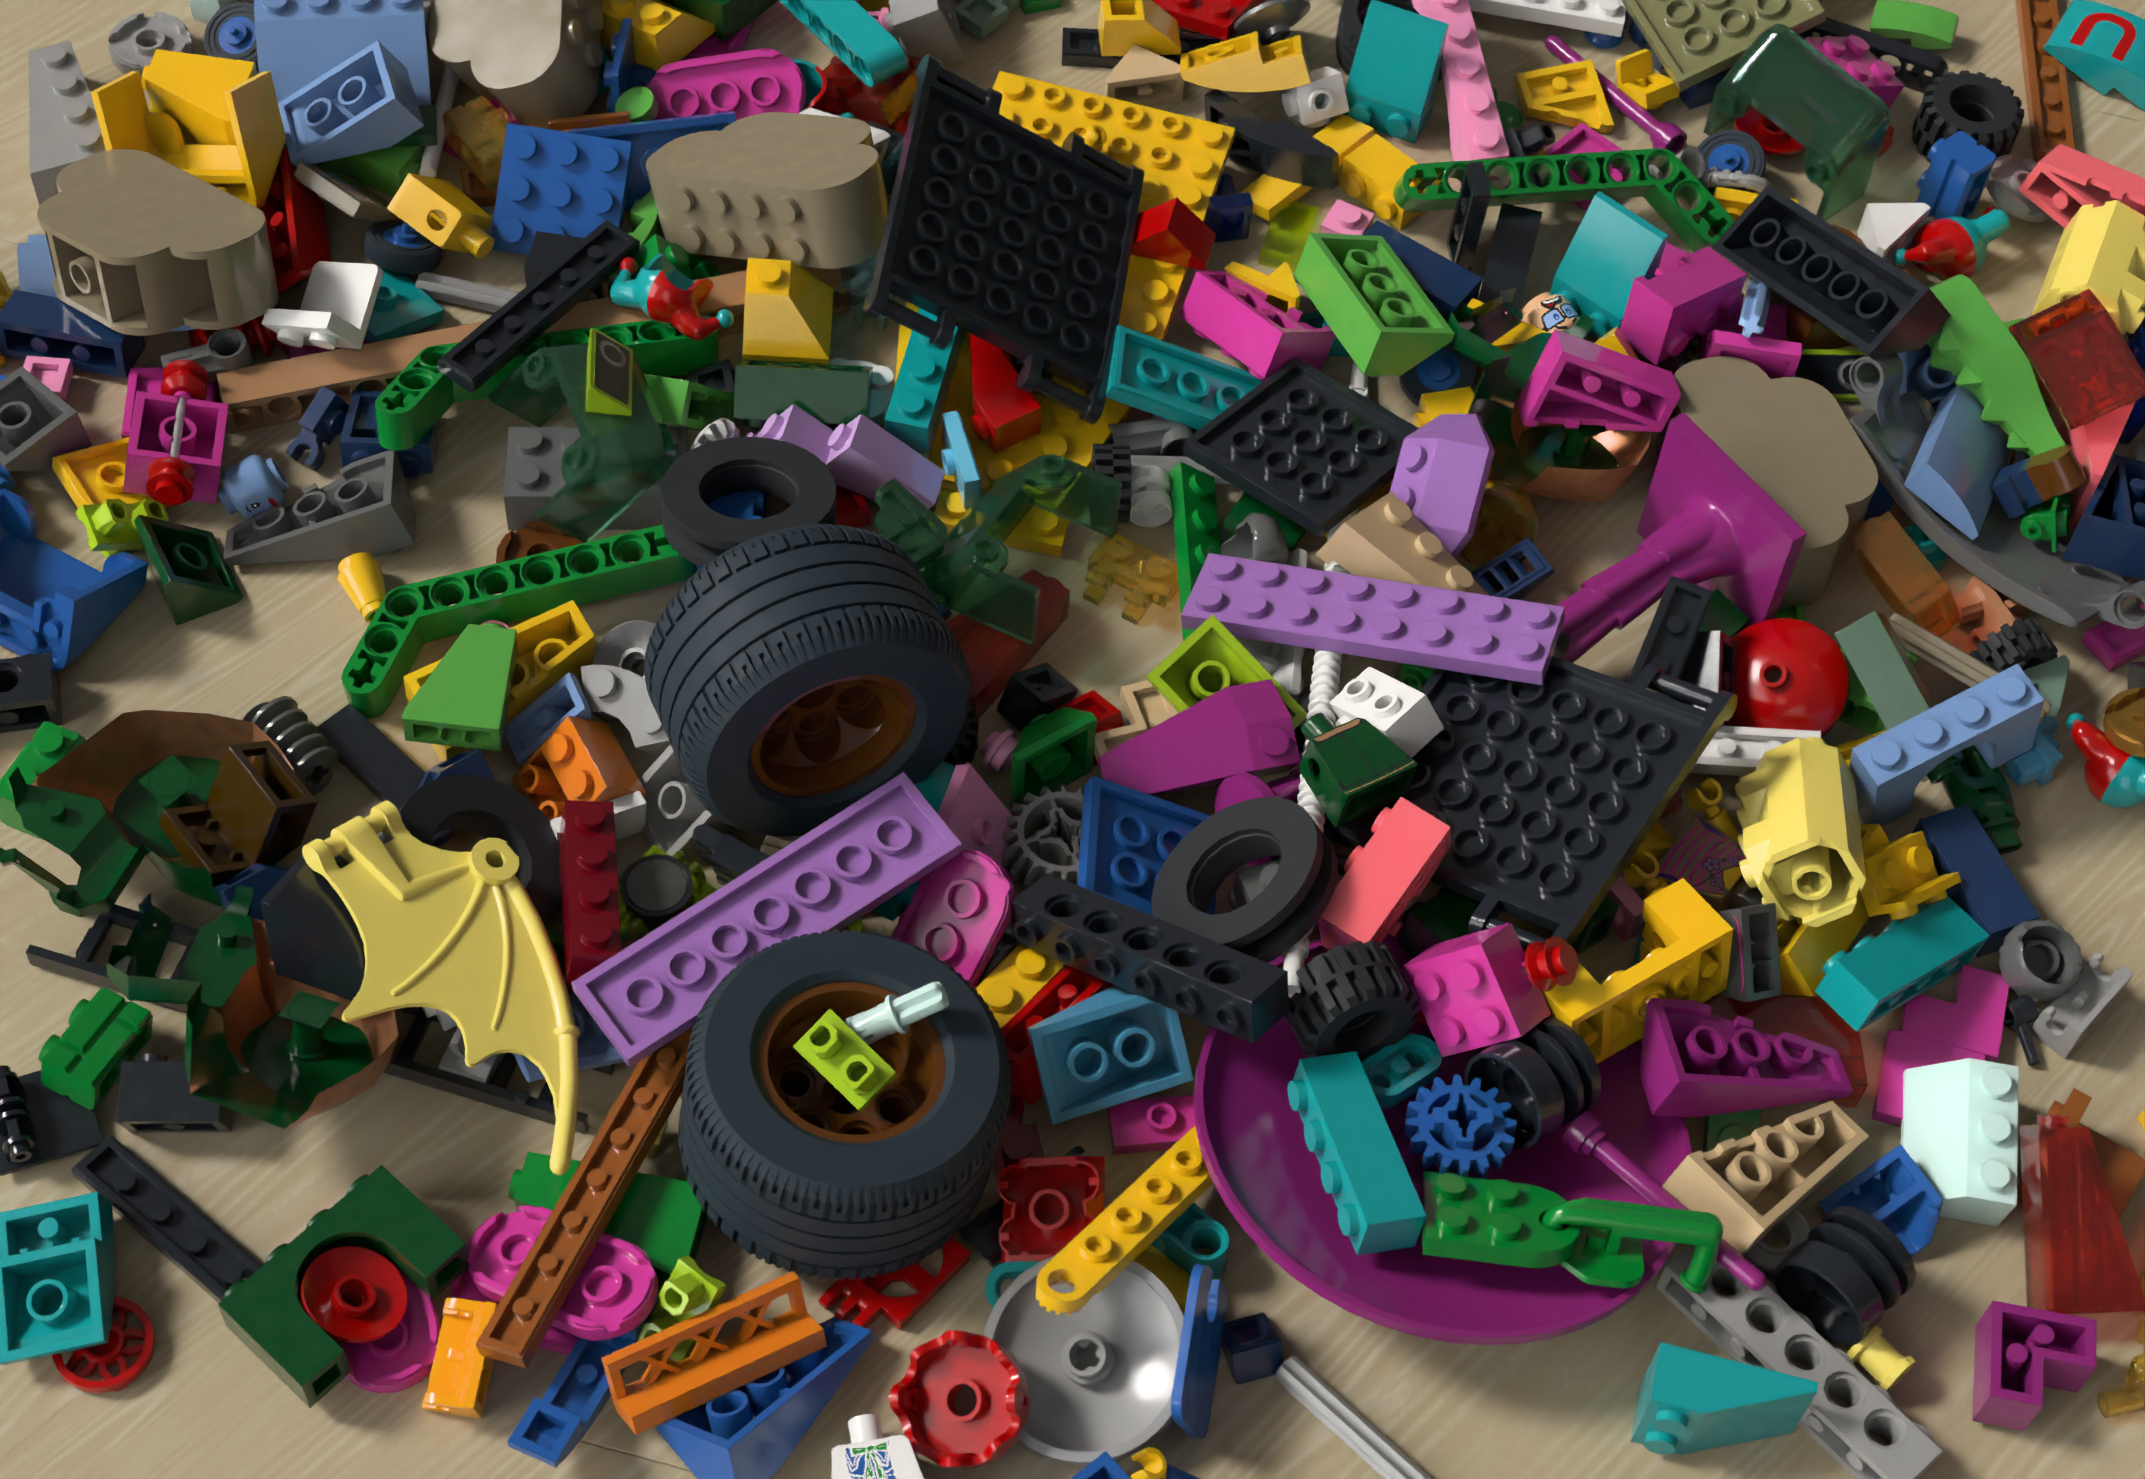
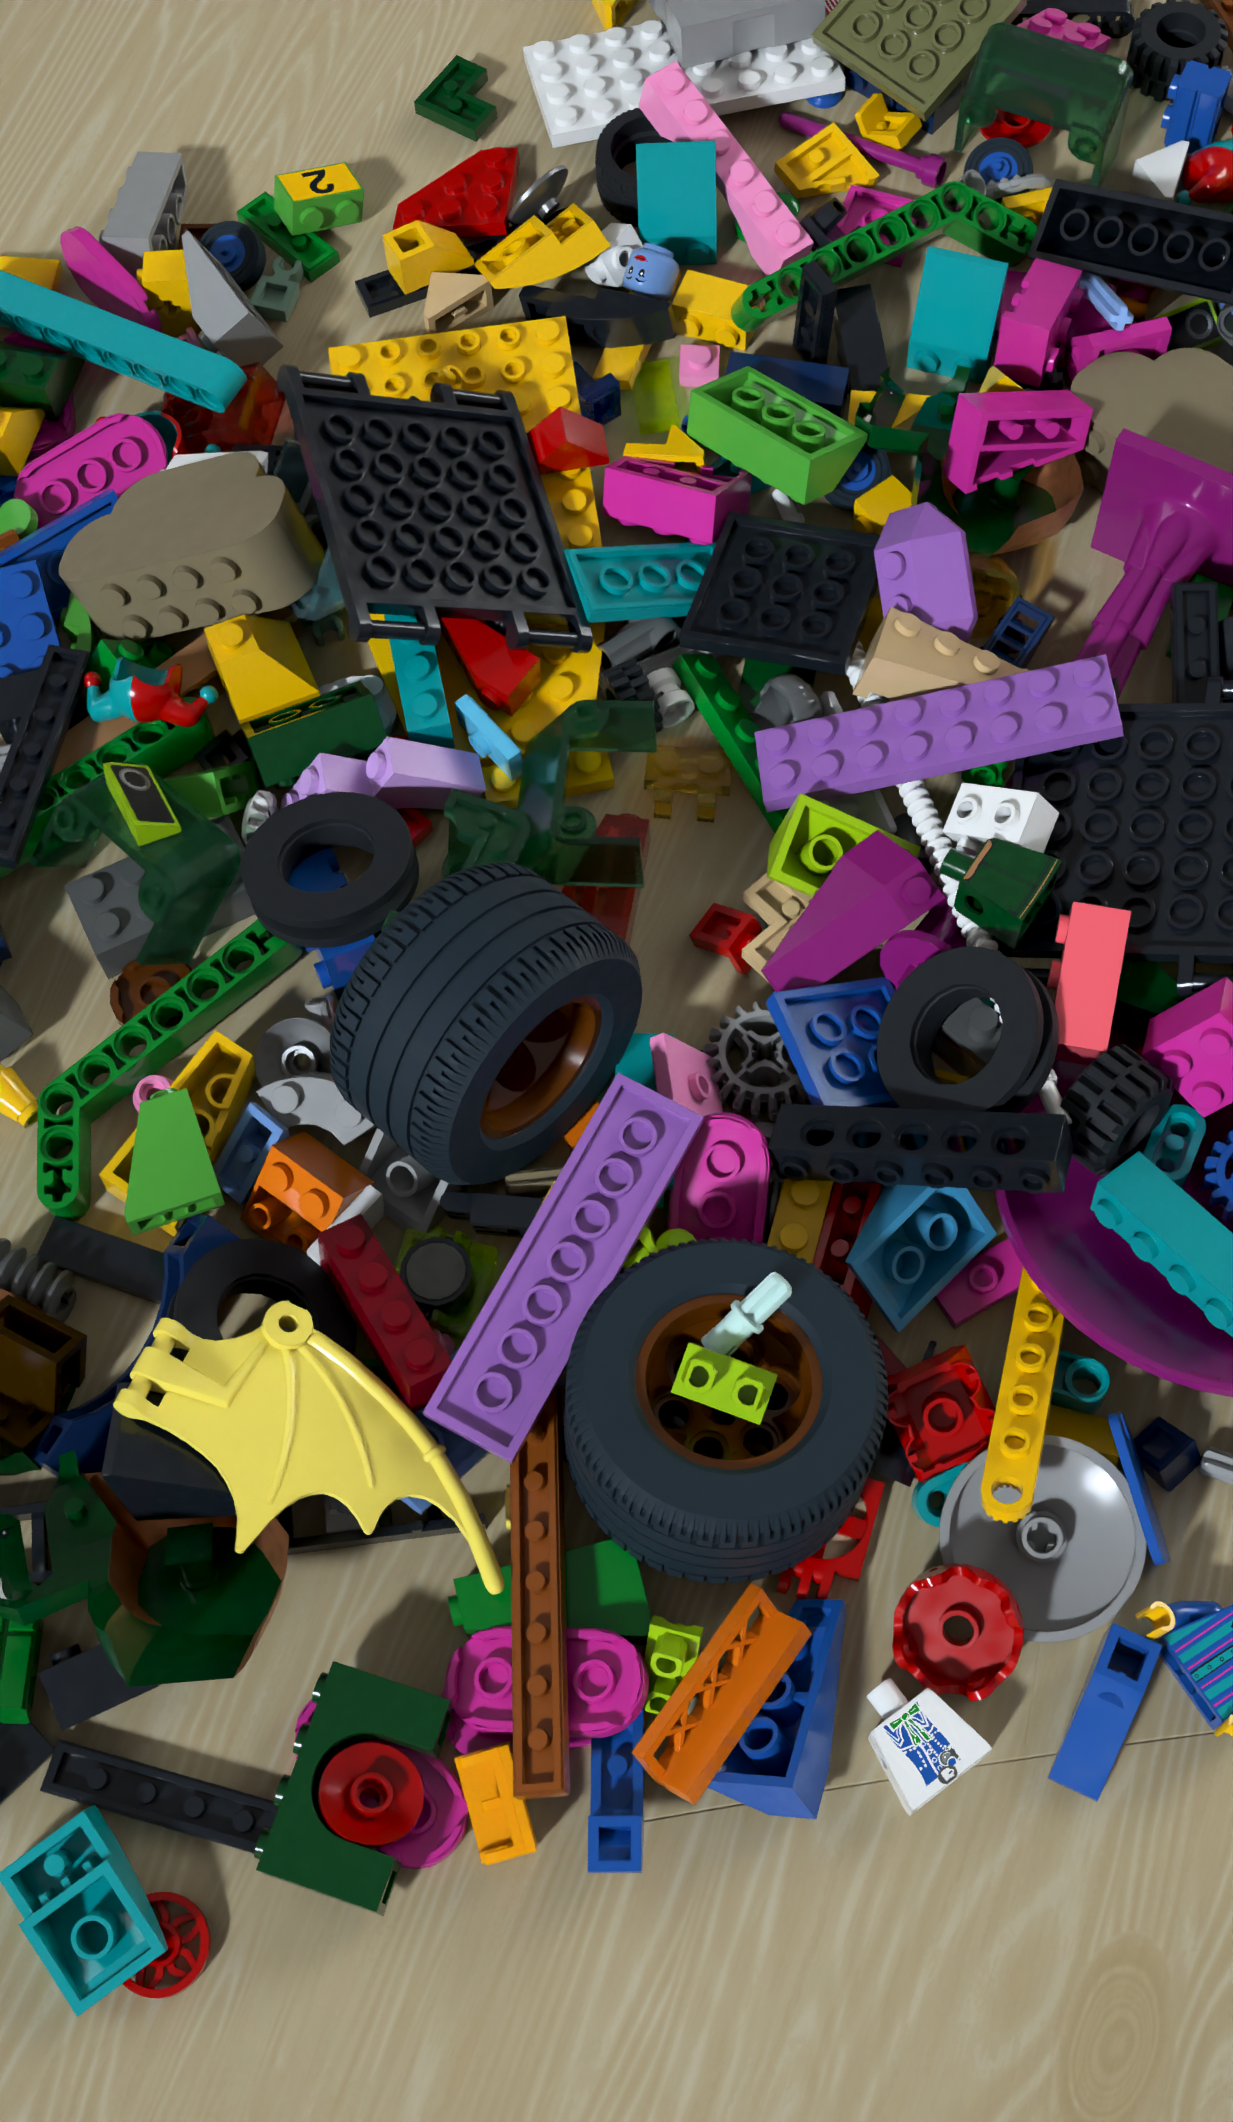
camera: 15 degrees left, 10 degrees up
(998, 750) = (662, 997): bright pink plate -> none
(1034, 693) = (665, 932): black bracket -> none
(1052, 752) = (710, 979): green slope -> none
(1338, 122) = (651, 272): none -> medium blue head
(1550, 312) = (924, 376): head -> none

